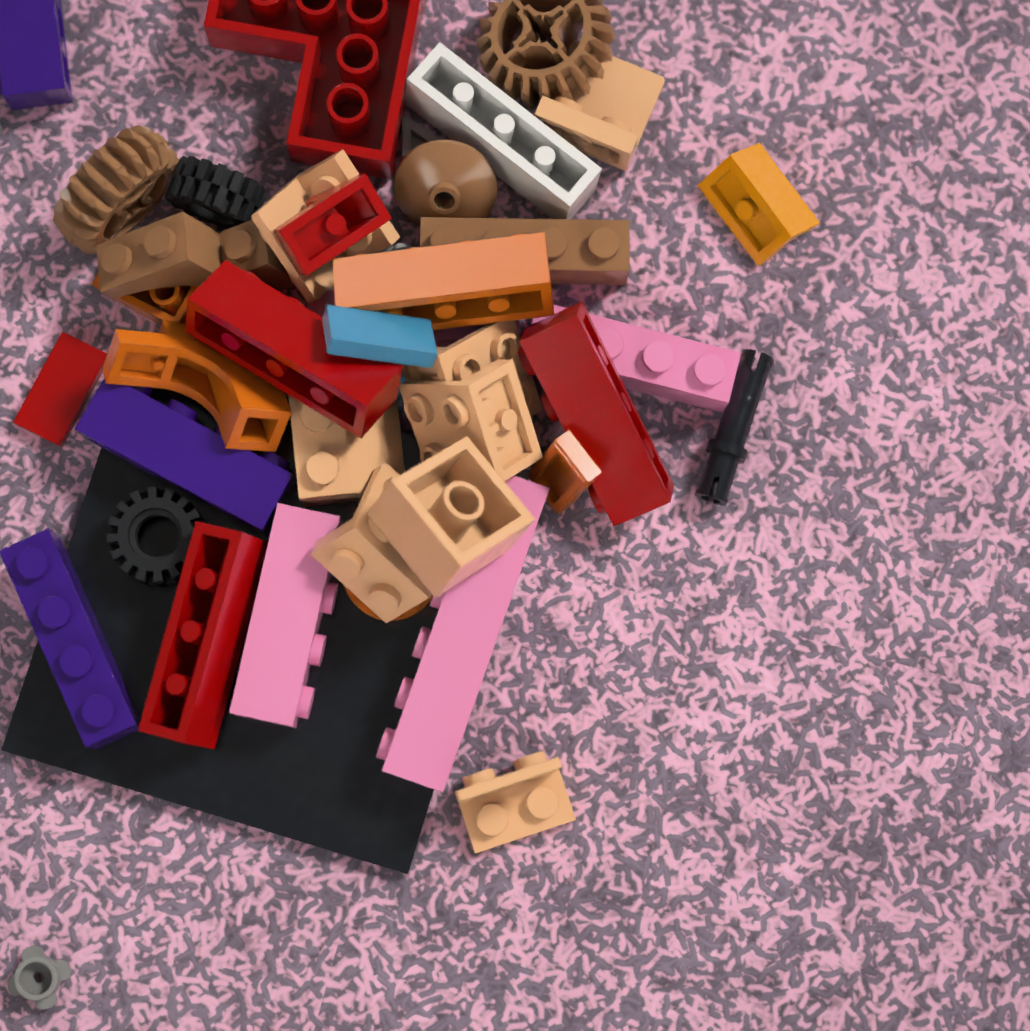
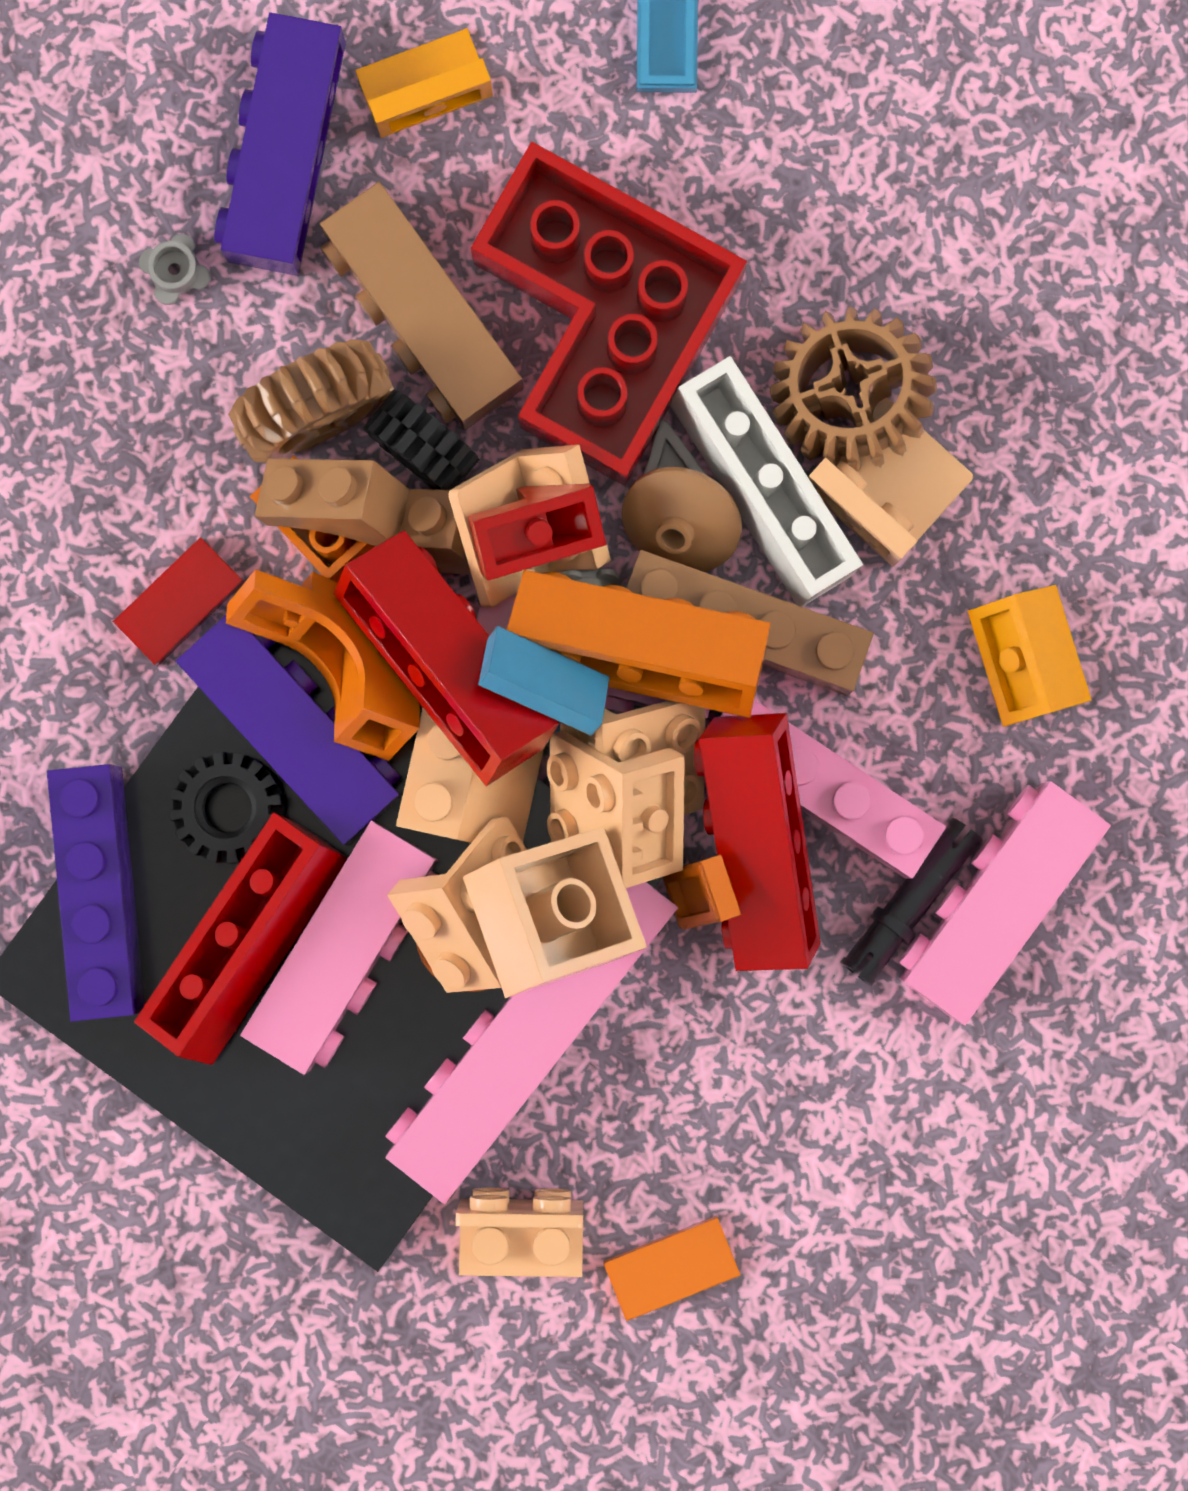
camera: 25 degrees right, 5 degrees up
(178, 90) = (421, 306): none -> medium nougat brick
(646, 788) = (671, 1268): none -> orange tile
(807, 401) = (1003, 901): none -> bright pink brick

